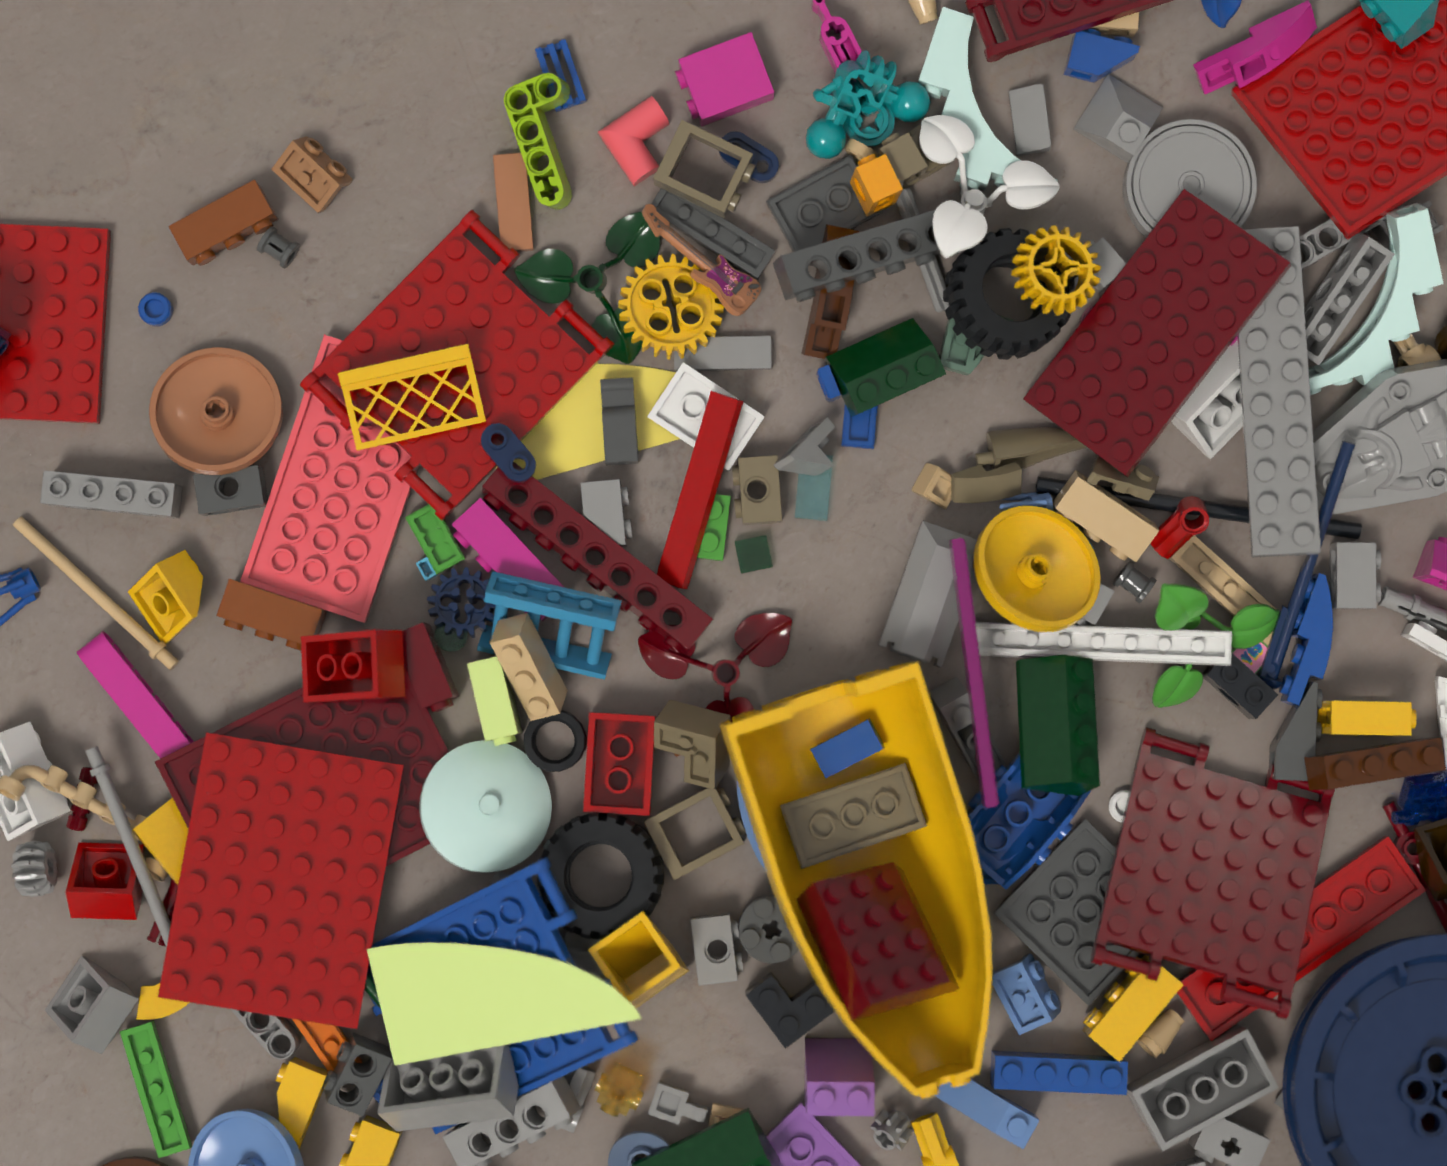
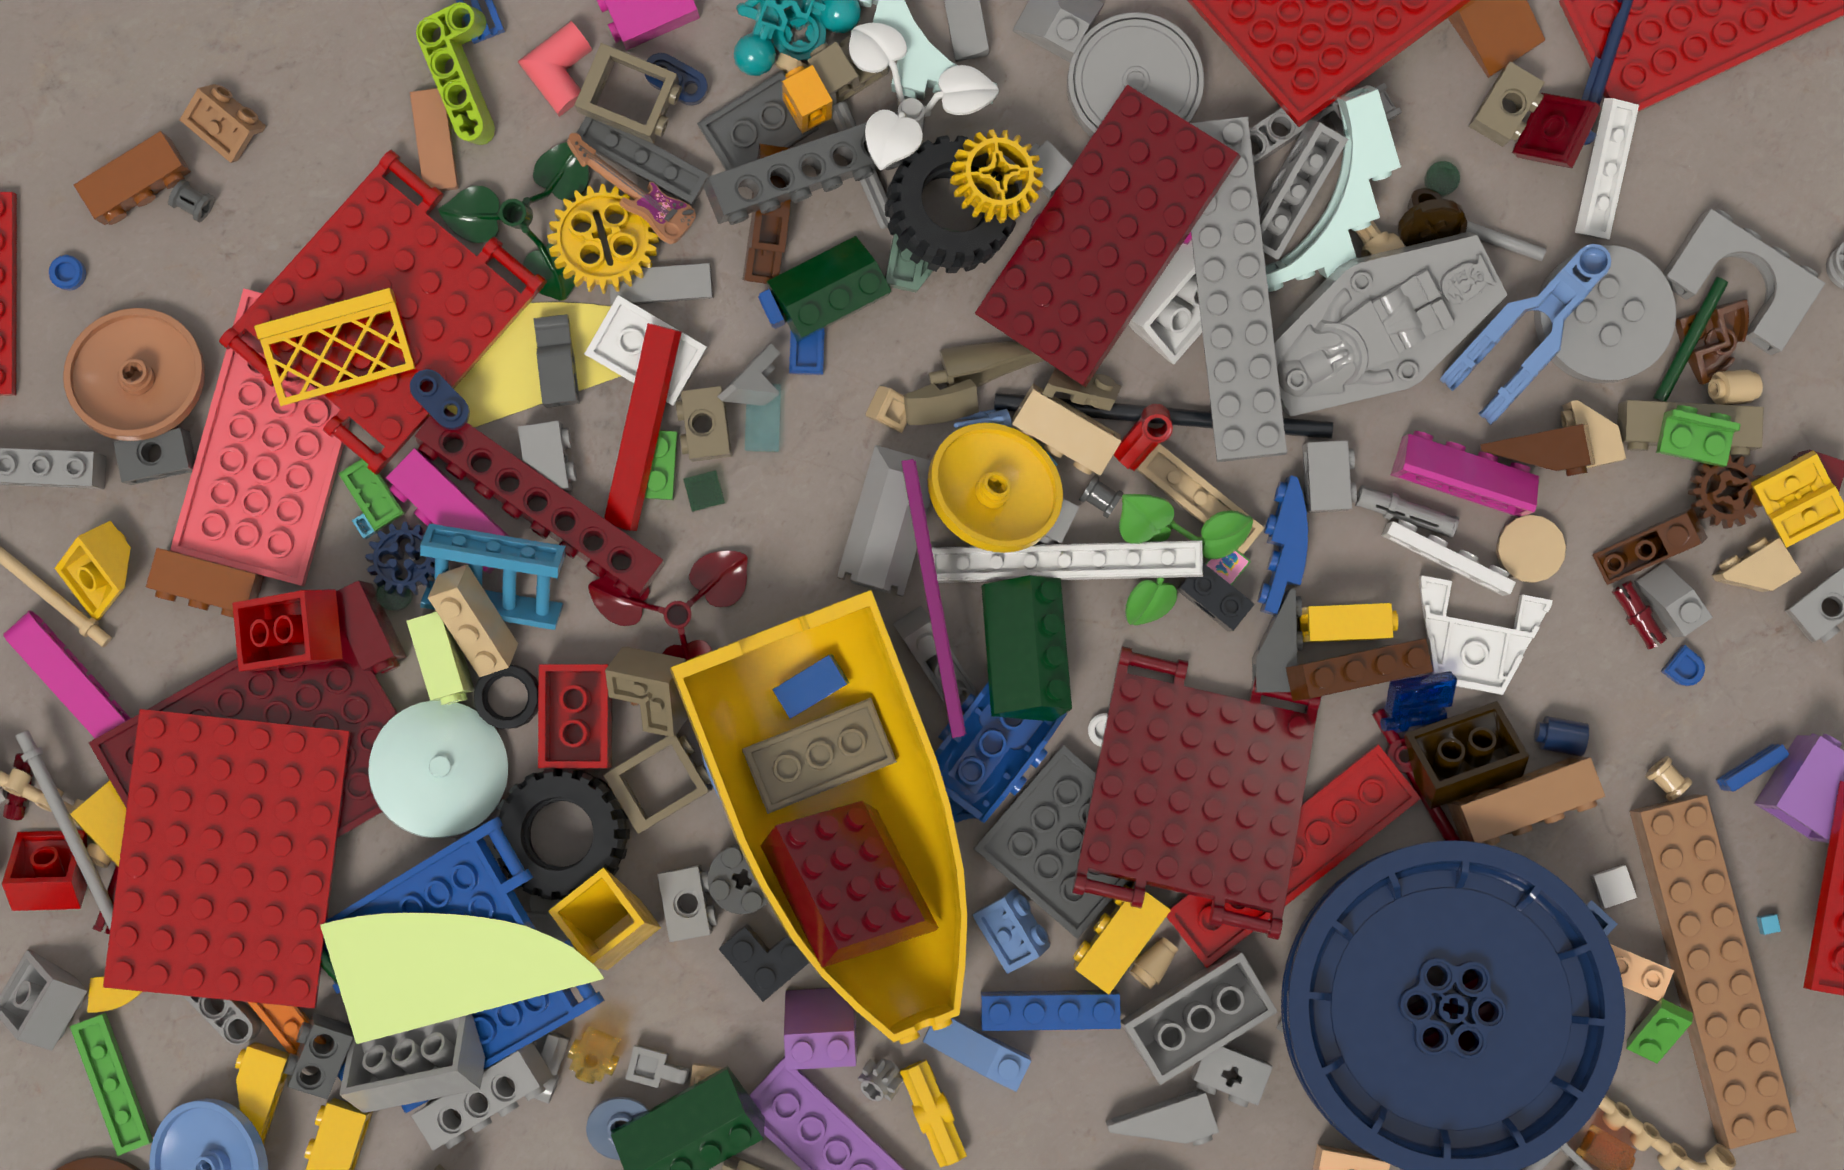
camera: 10 degrees left, 0 degrees up
(1288, 615) = (1262, 521): dark blue bar -> none

